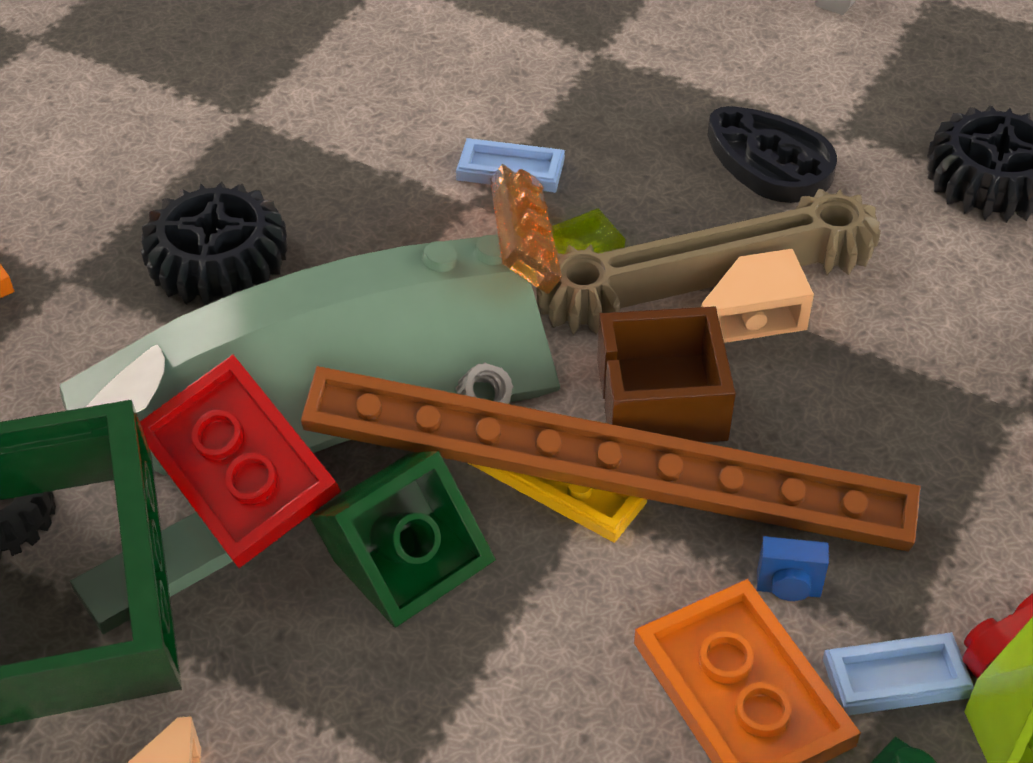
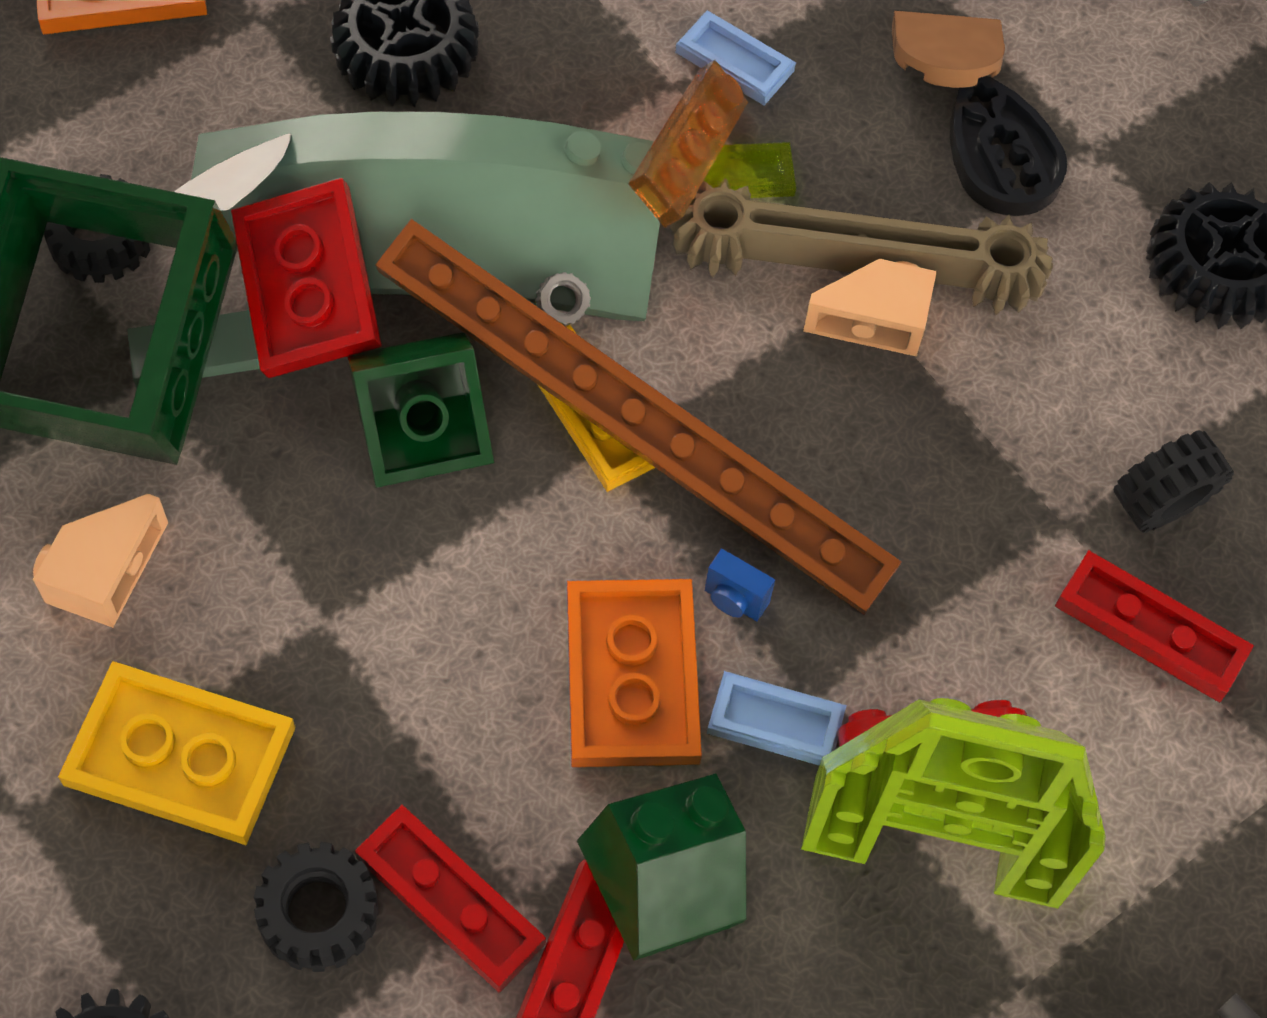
camera: 20 degrees right, 15 degrees up
(666, 372) = (735, 353): reddish brown piece -> none
(691, 95) = (948, 47): none -> medium nougat tile

